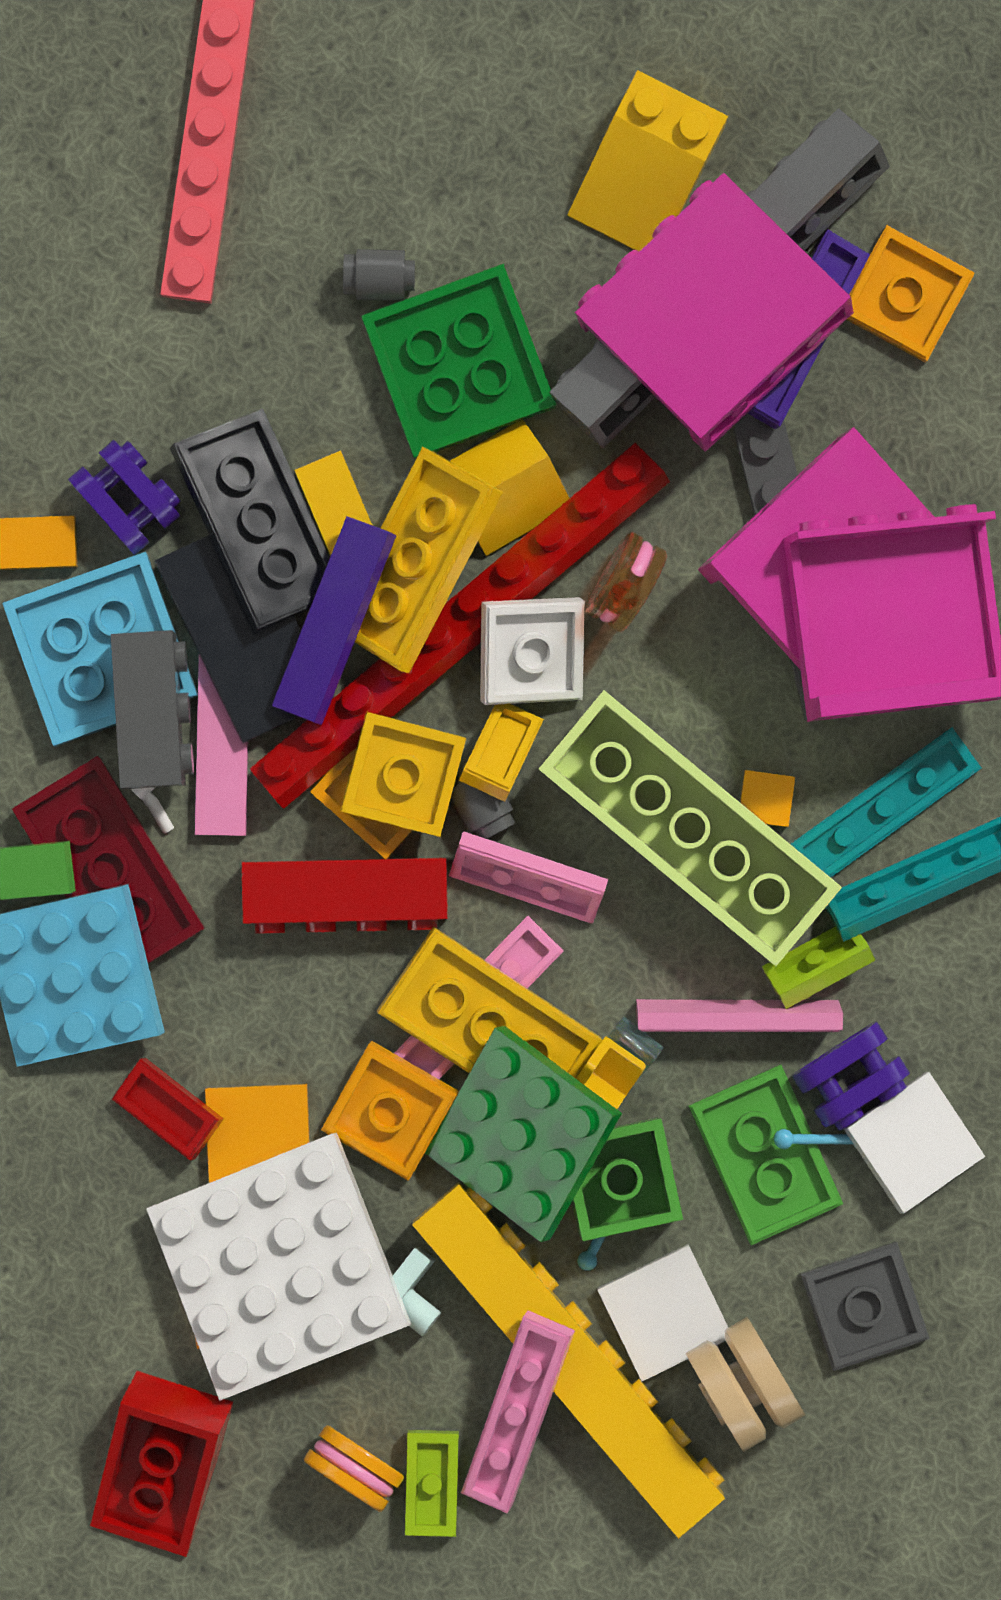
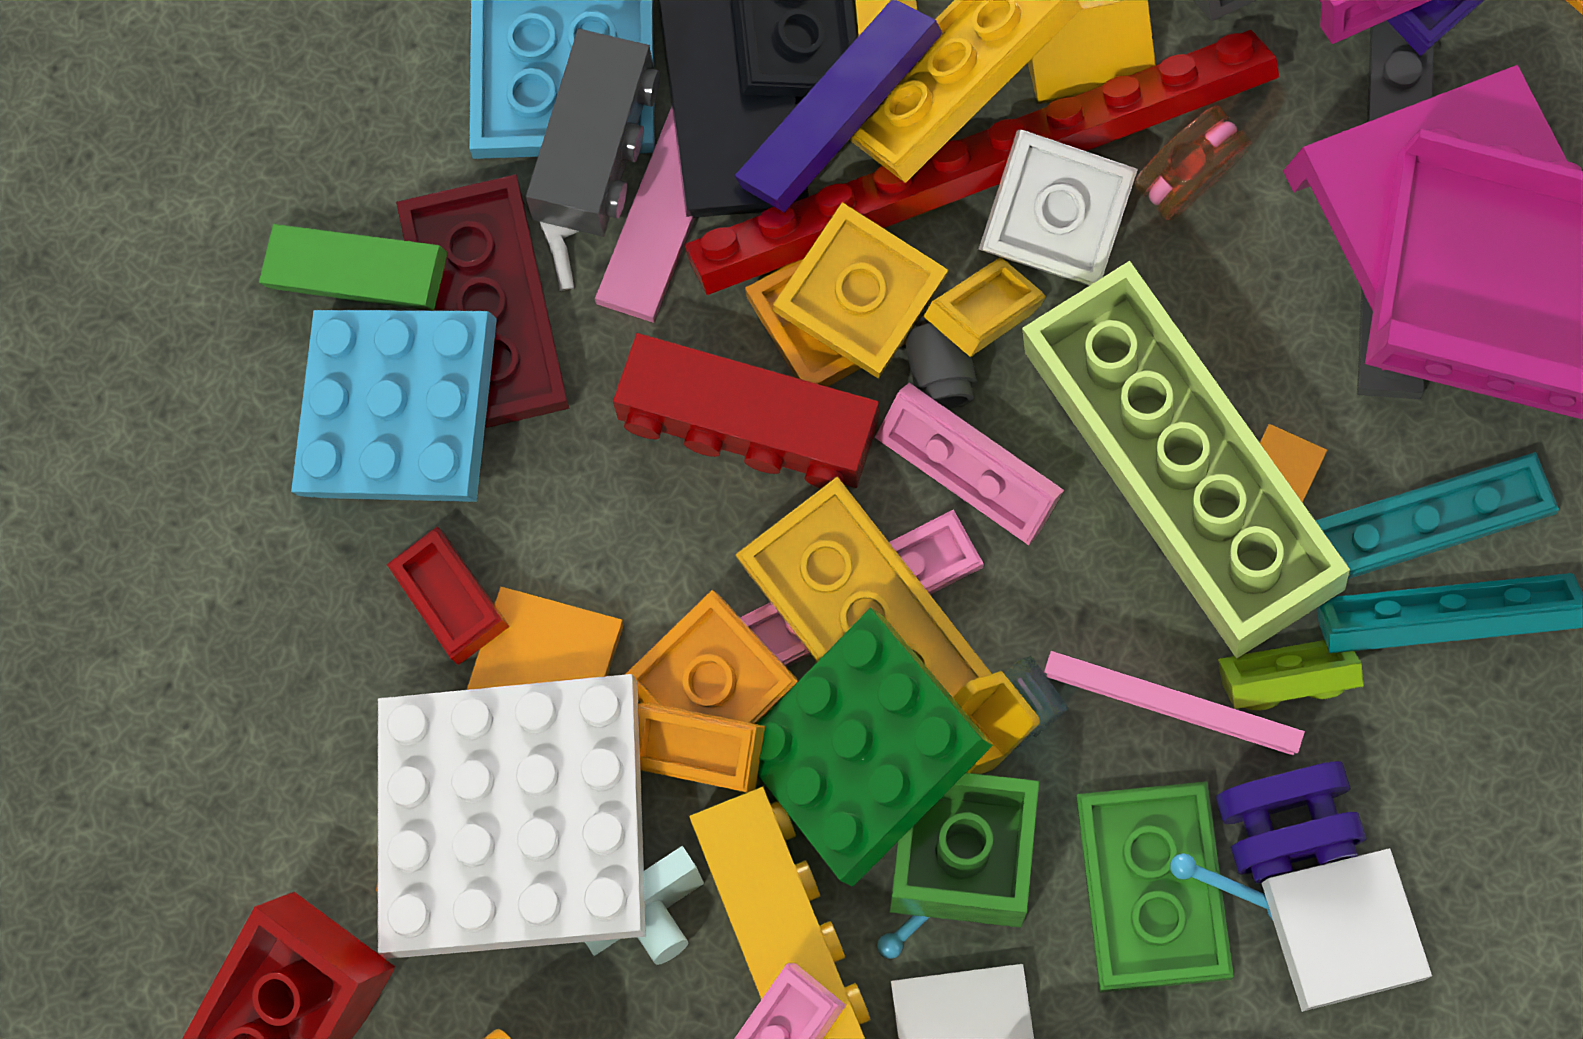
camera: 30 degrees right, 15 degrees down
(400, 1167) = (699, 747): none -> light orange tile

